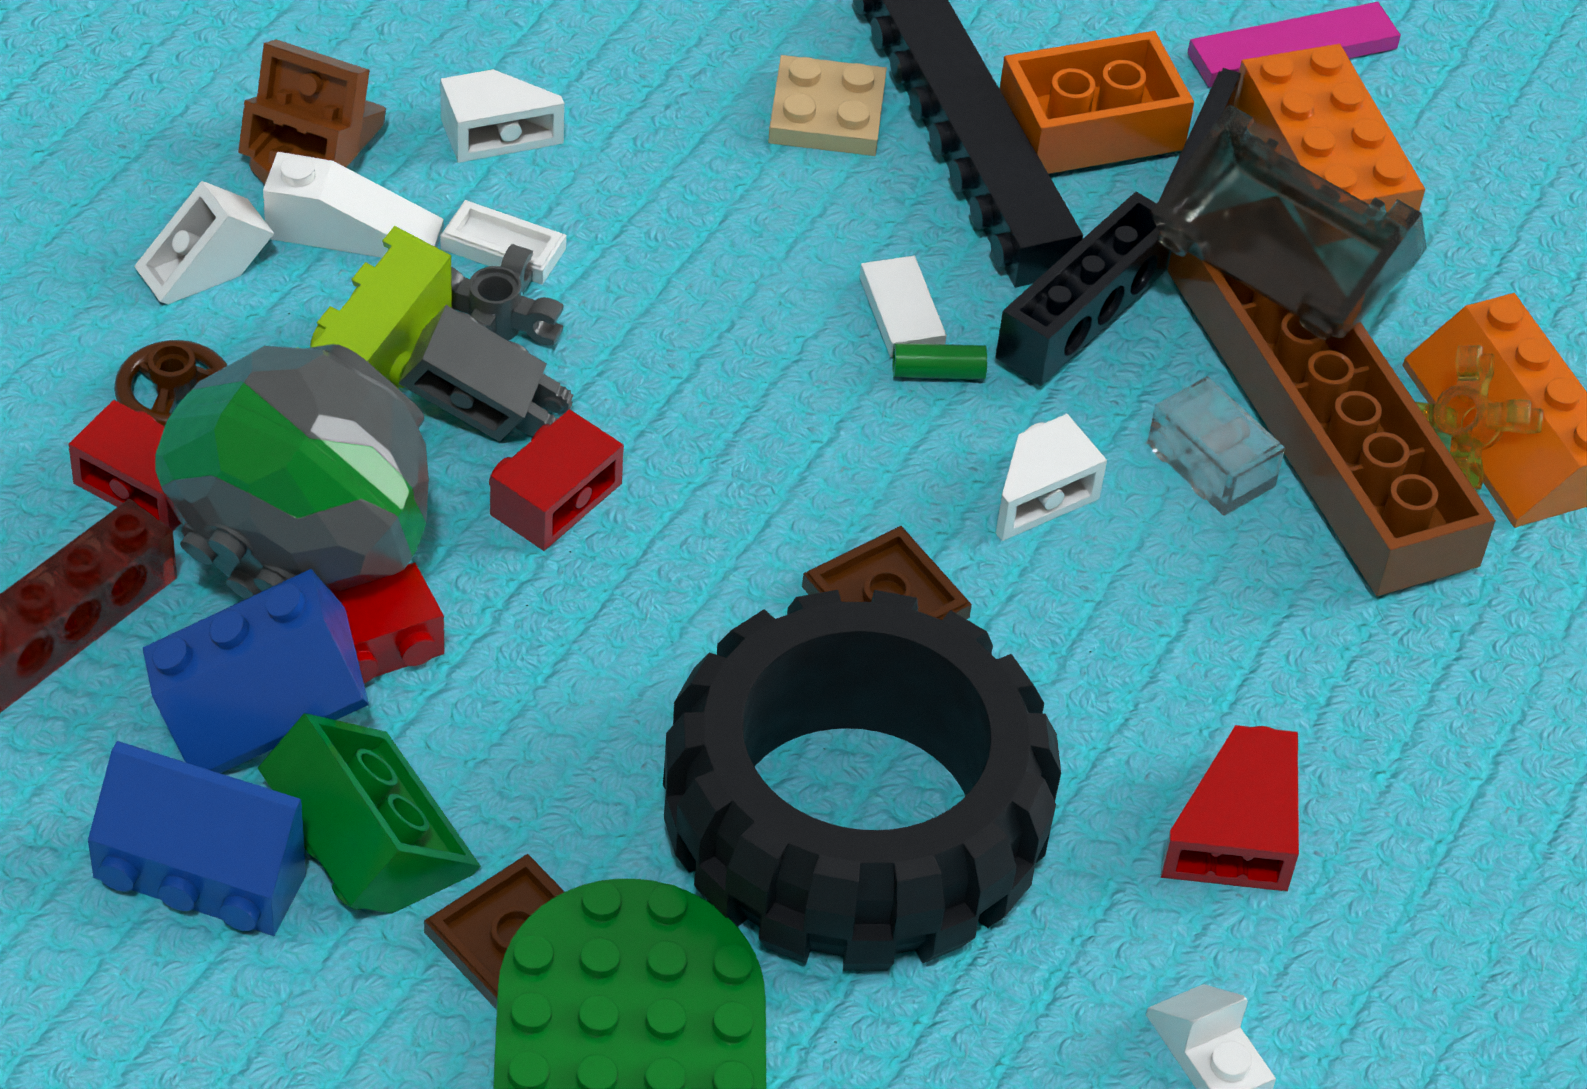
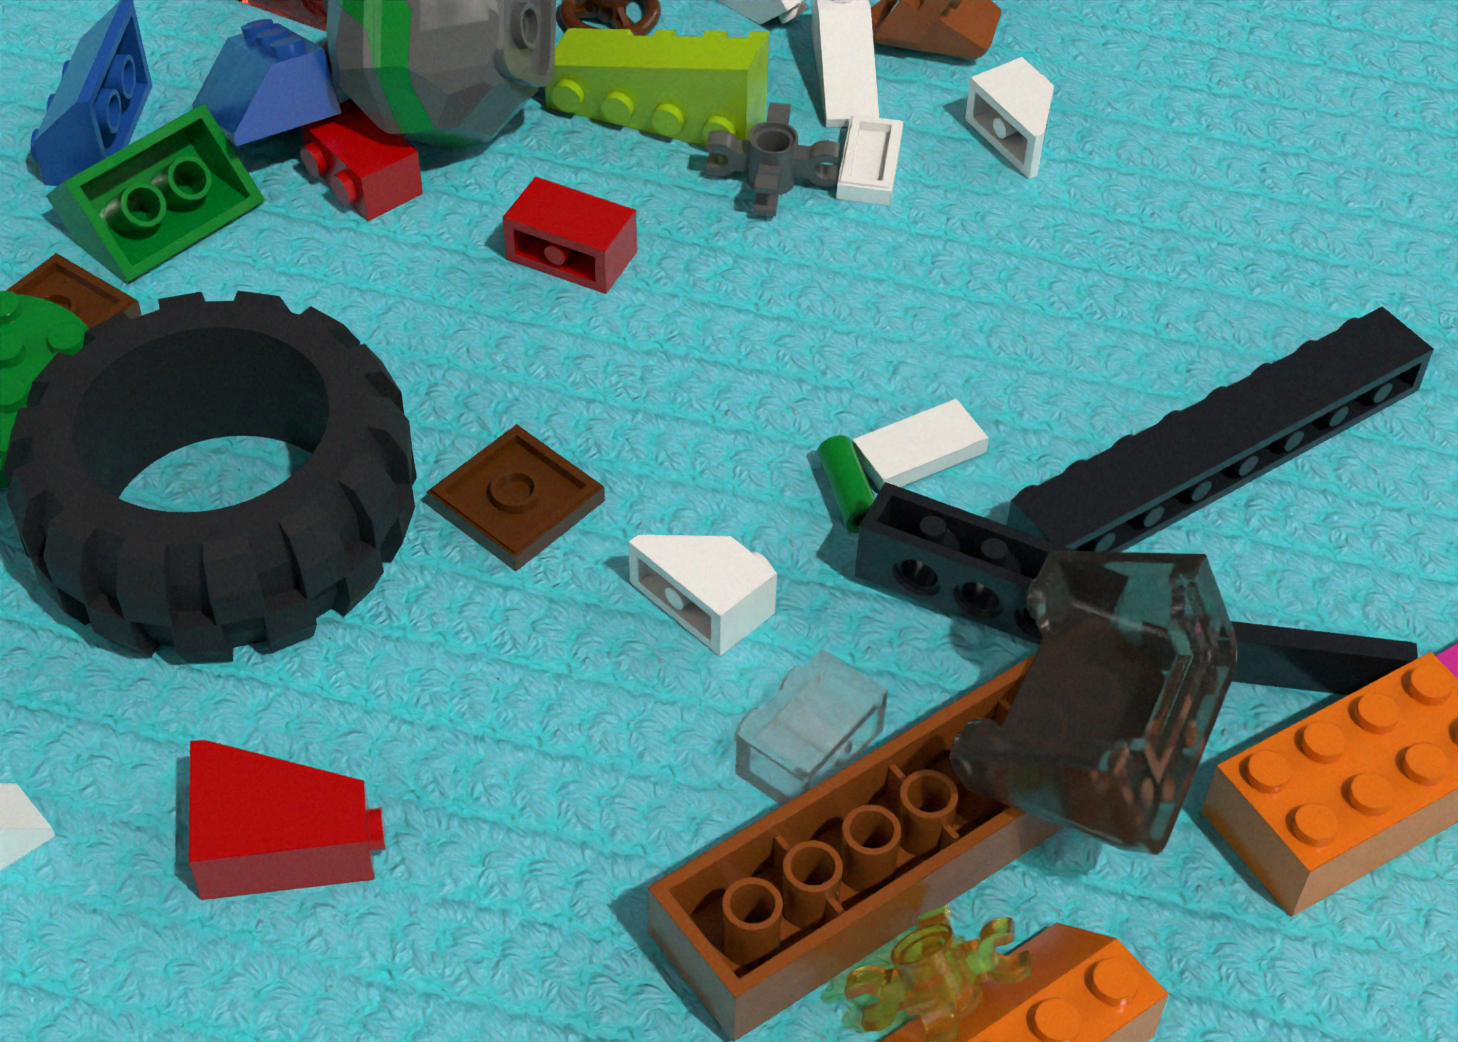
camera: 80 degrees right, 0 degrees up
(482, 377) = (656, 151): dark grey hinge -> none
(827, 105) = (1183, 343): tan plate -> none
(1098, 101) = (1293, 537): orange brick -> none

